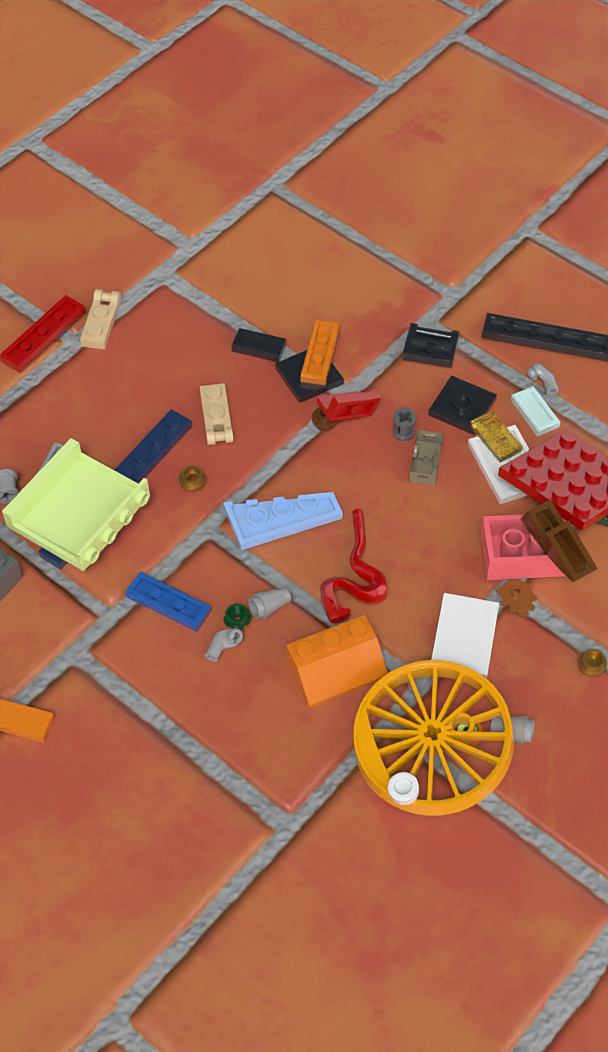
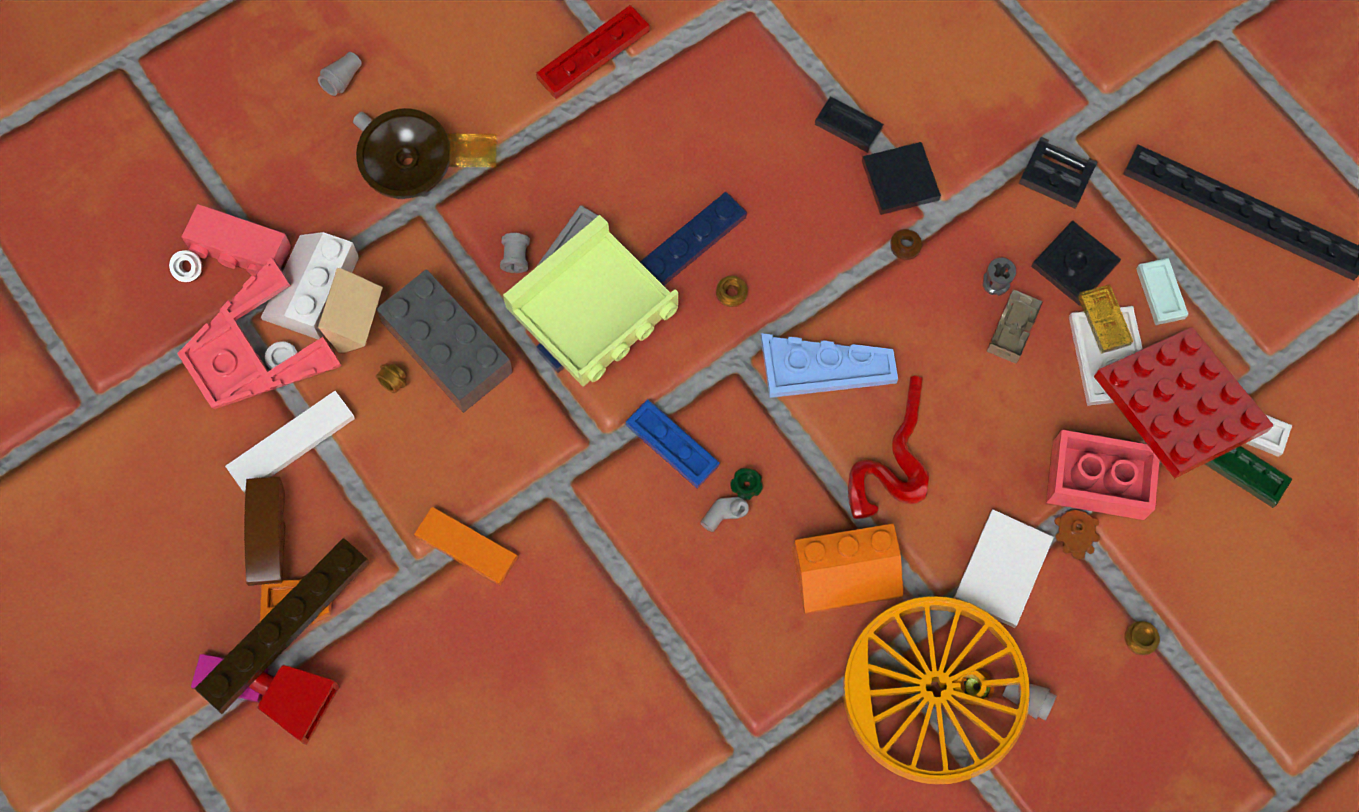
camera: 10 degrees right, 15 degrees up
(100, 319) = (665, 46): tan plate -> none
(216, 413) = (778, 208): tan plate -> none
(267, 602) = (785, 474): light grey cone -> none
(320, 352) = (920, 154): orange tile -> none
(348, 405) = (937, 234): red panel -> none
(403, 788) = (887, 747): white tile -> none
(546, 376) = (1188, 247): light grey arm -> none
(559, 541) = (1144, 488): reddish brown slope -> none

